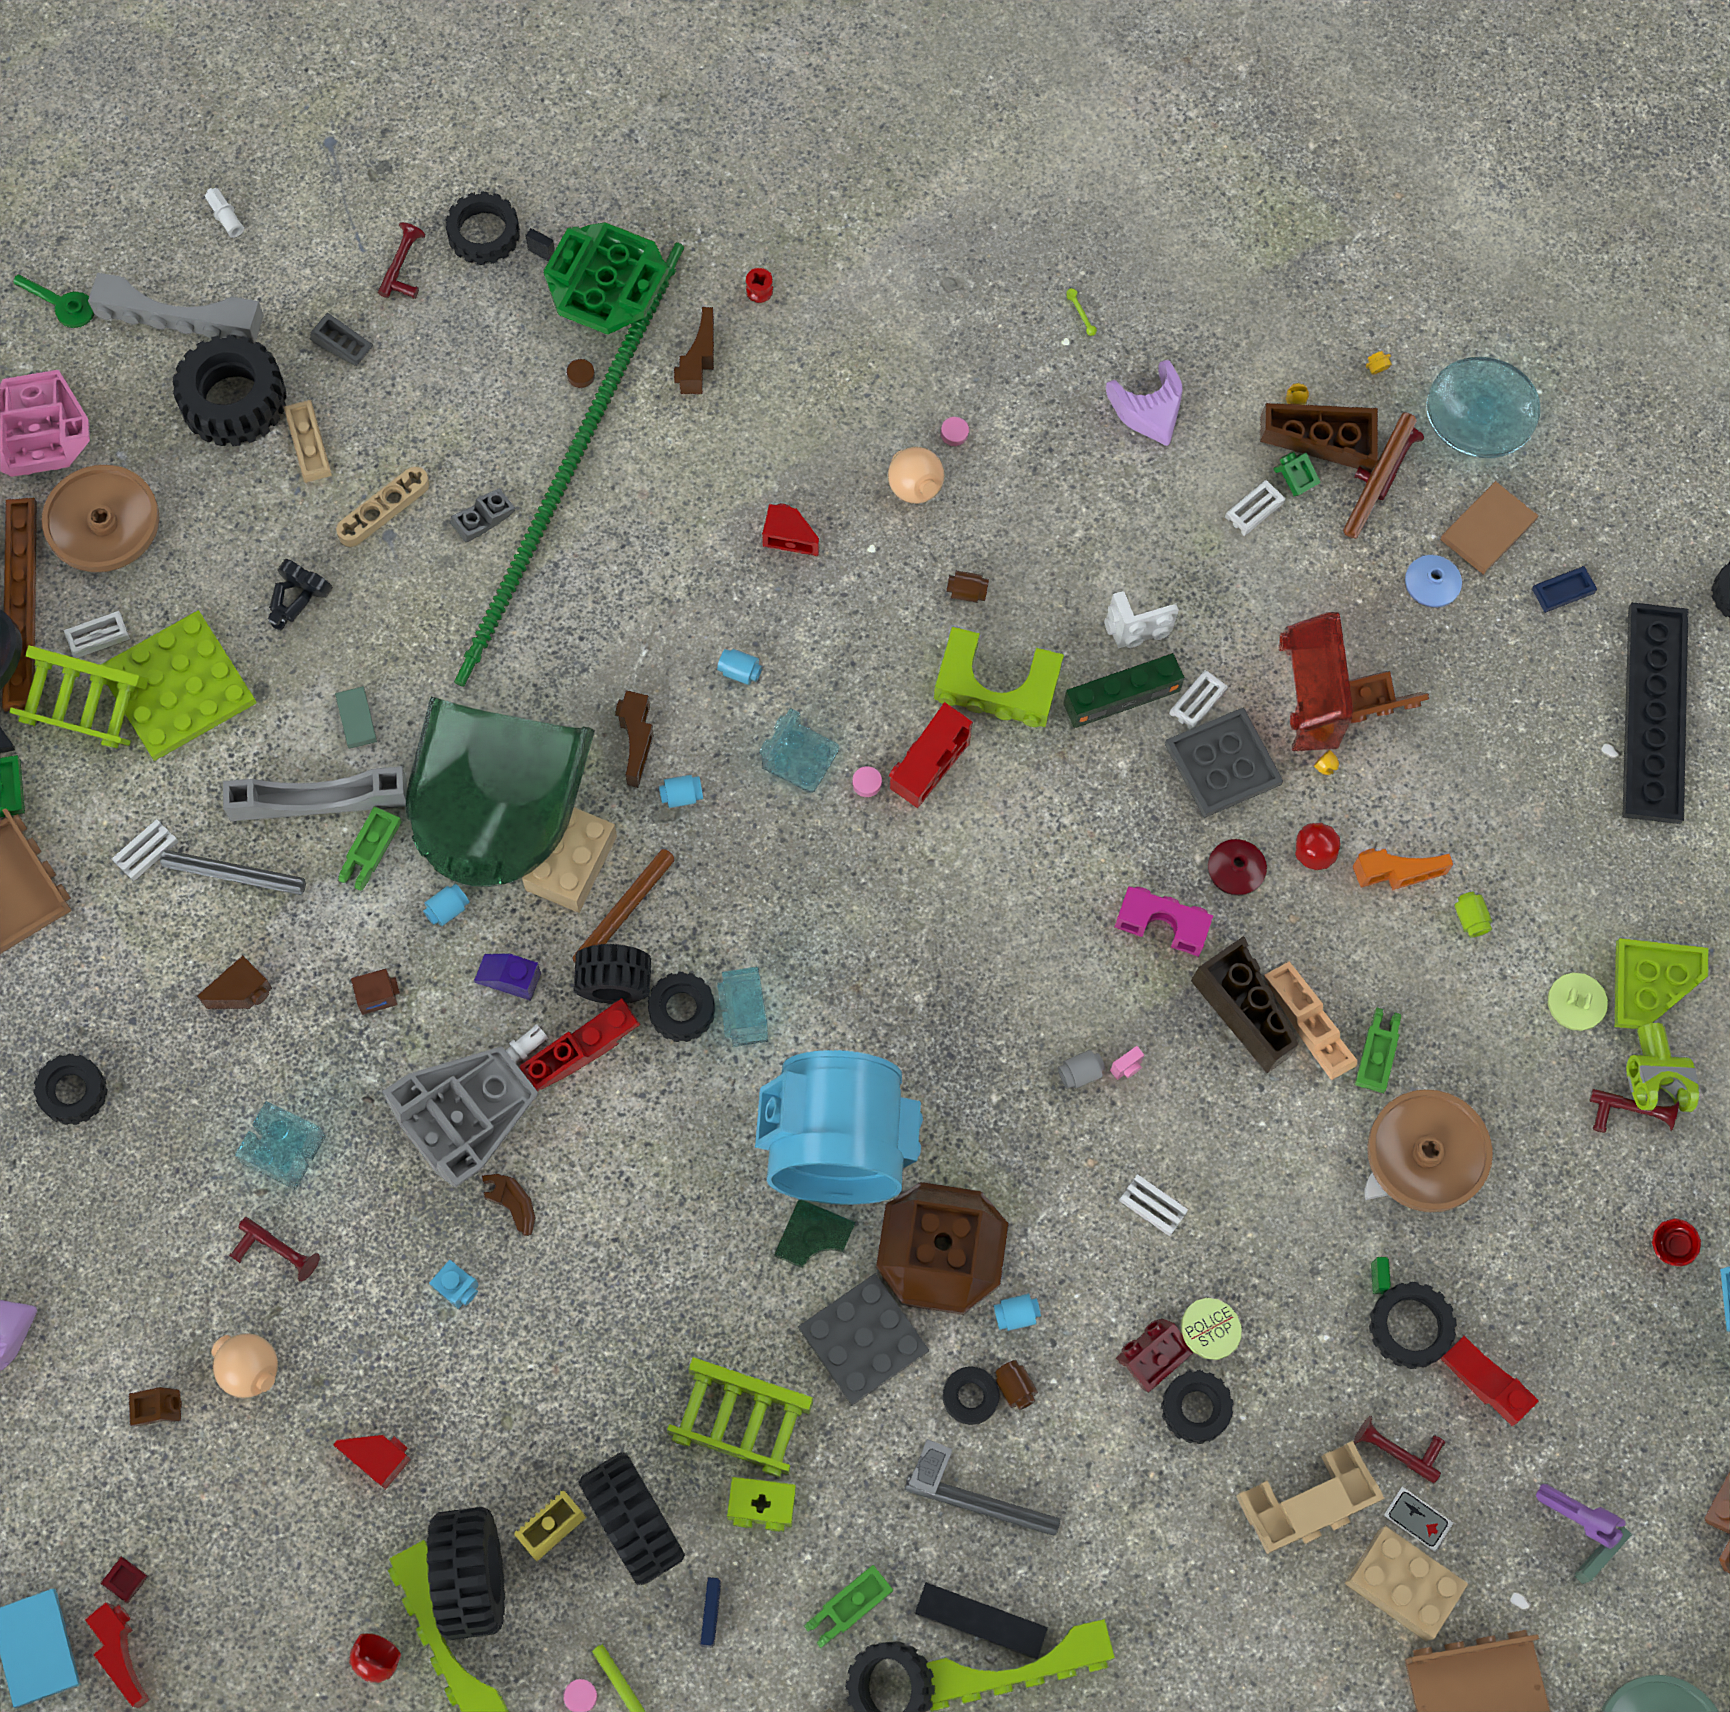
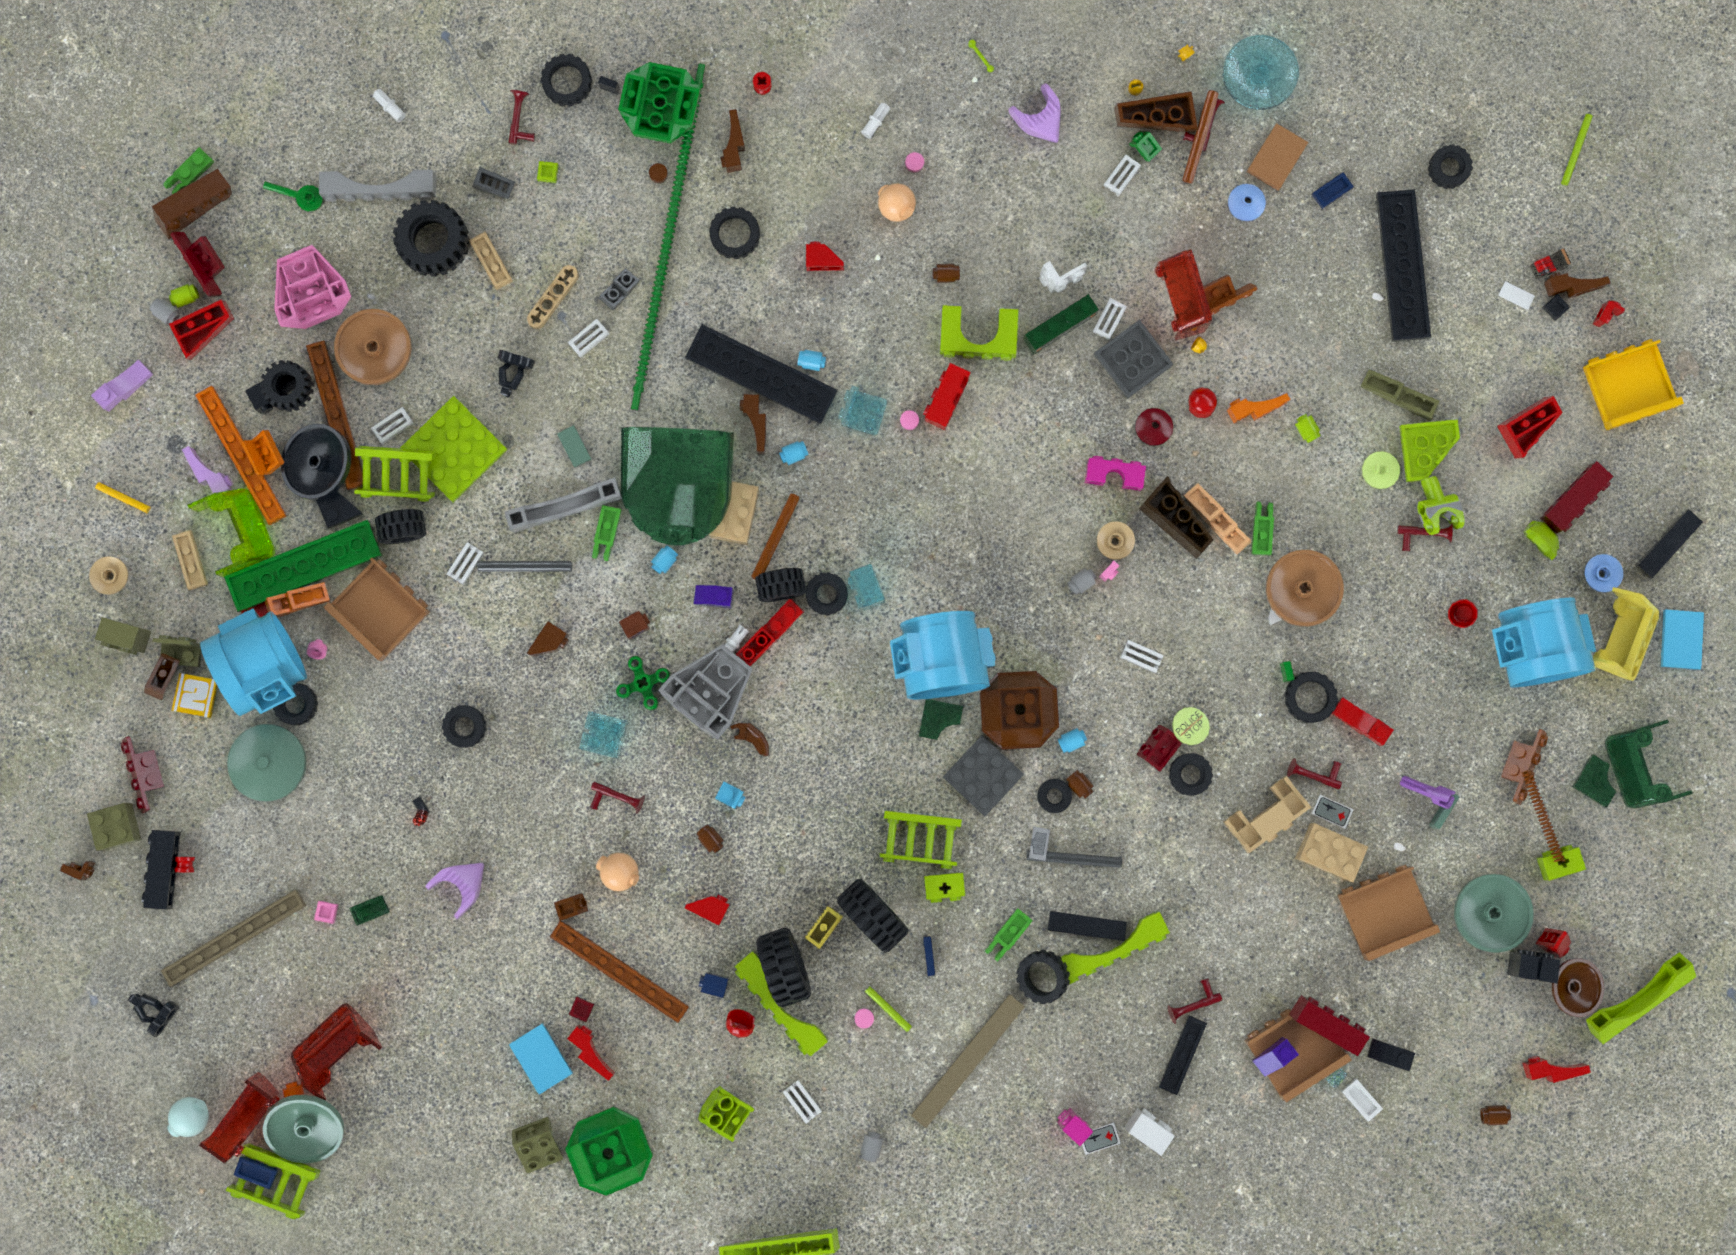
camera: 10 degrees left, 15 degrees up
(62, 771) = (400, 526): none -> black tyre
(203, 1531) = (619, 971): none -> dark orange tile
(348, 1584) = (713, 984): none -> dark blue brick
(362, 1070) = (645, 690): none -> green gear
(405, 1345) = (710, 839): none -> reddish brown brick
(421, 577) = (576, 348): none -> white tile
(422, 341) = (547, 172): none -> lime tile
(661, 671) = (761, 374): none -> black plate
(670, 446) = (738, 213): none -> black tyre
(910, 365) = (875, 120): none -> white axle
(1146, 1005) = (1125, 539): none -> tan dish
(1631, 902) = (1400, 395): none -> olive slope

